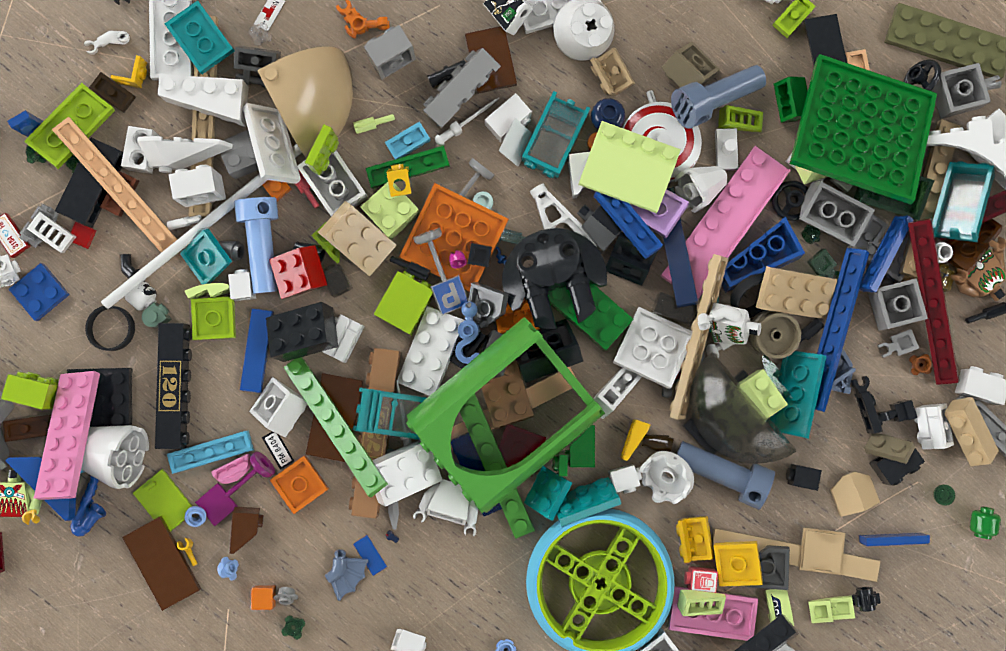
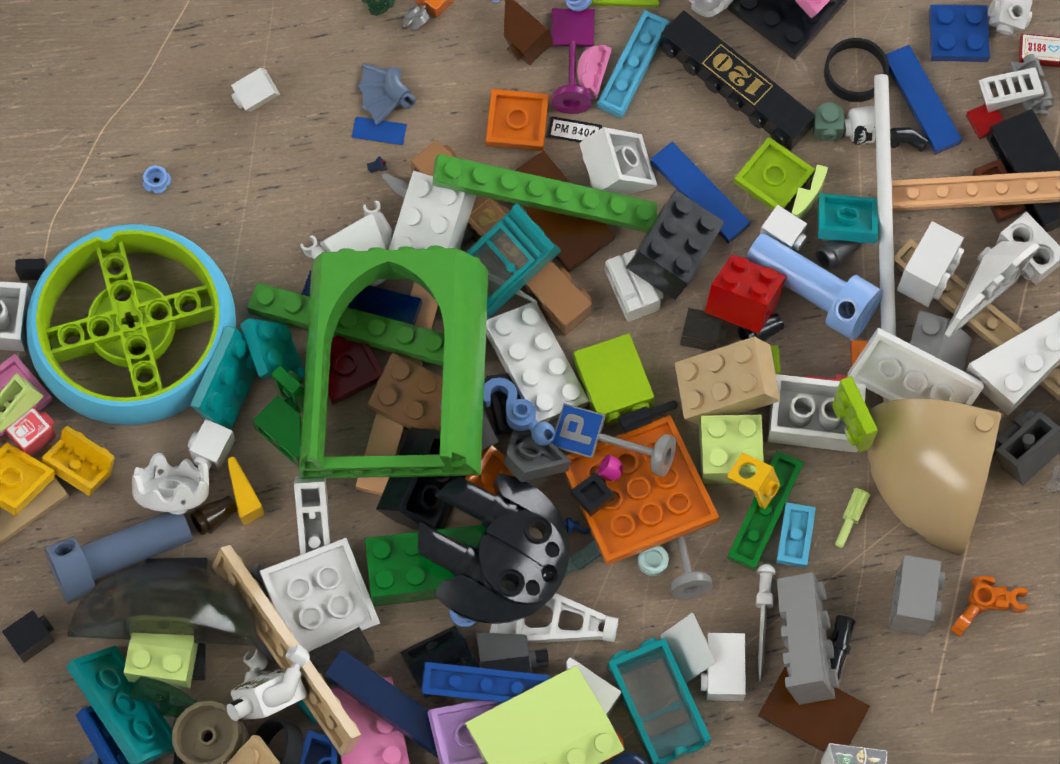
camera: 130 degrees right, 15 degrees down
(98, 278) = (922, 100): none -> blue tile
(183, 222) = (909, 228): white piece -> none

